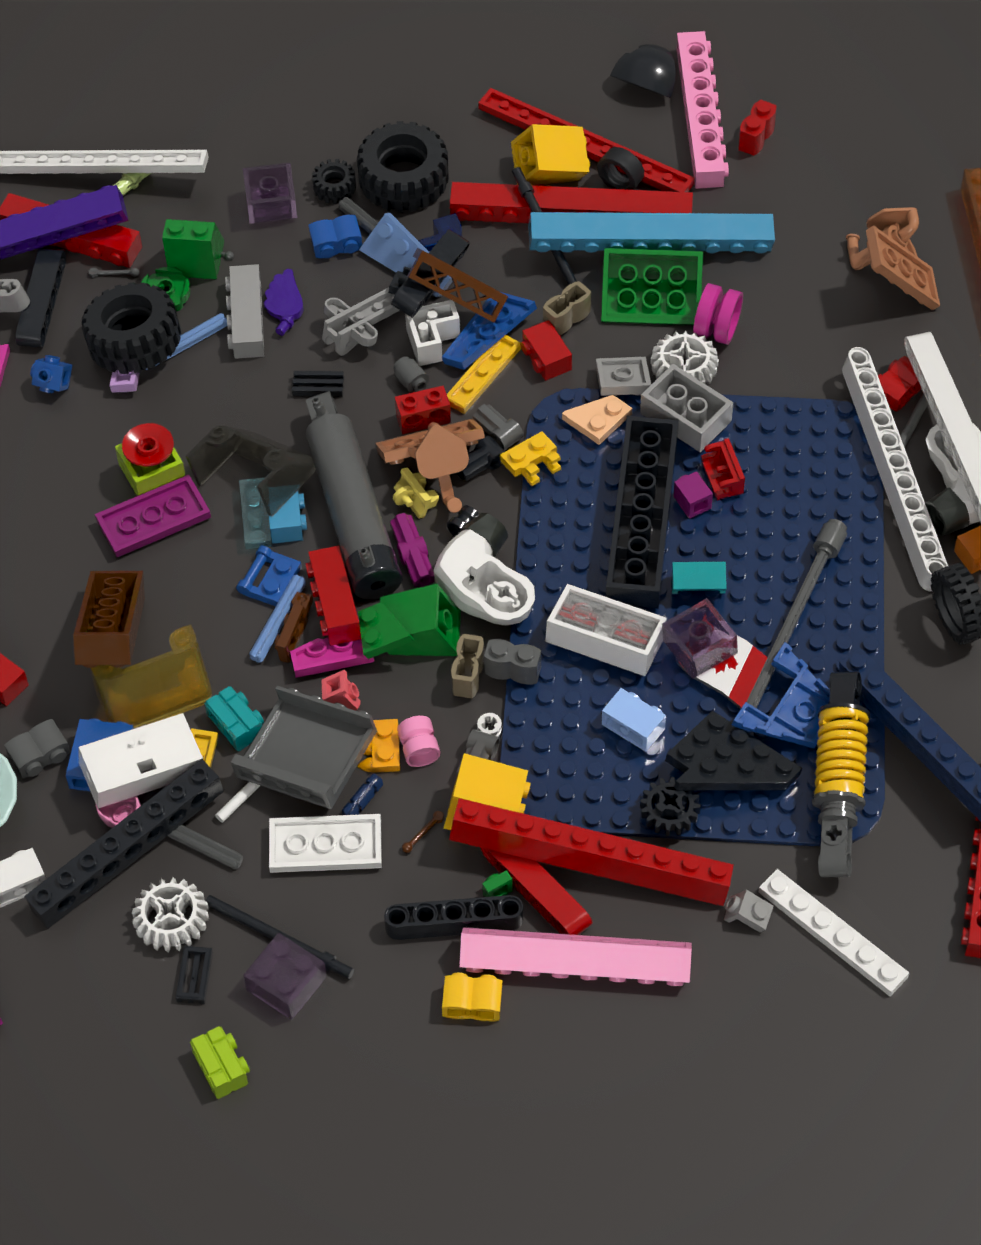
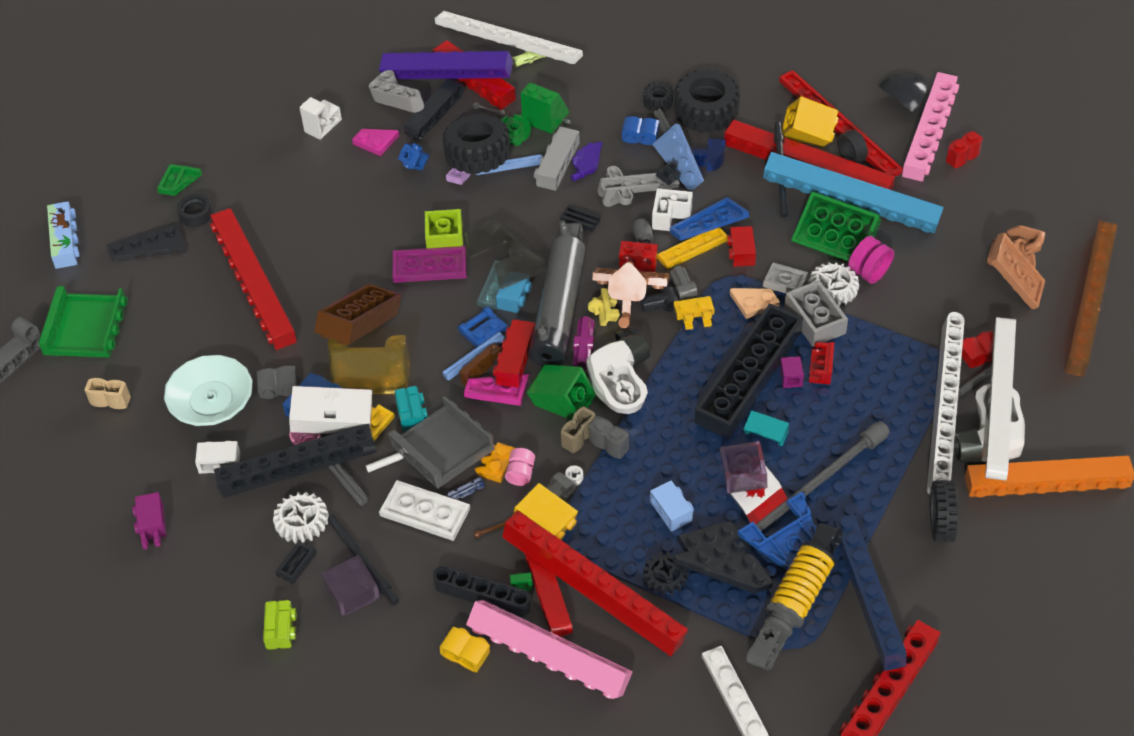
camera: 25 degrees right, 5 degrees down
(146, 437) = (443, 216): red dish -> none
(270, 193) = (611, 90): clear purple brick -> none
(340, 690) = (485, 415): coral brick -> none
(381, 631) = (531, 385): green wing -> none
(414, 295) = (684, 170): black beam -> none
(456, 274) = (690, 165): reddish brown fence -> none
(568, 308) = (769, 223): dark tan brick -> none
(605, 629) = (682, 439): brick -> none
(749, 910) = (687, 666): light grey bracket -> none

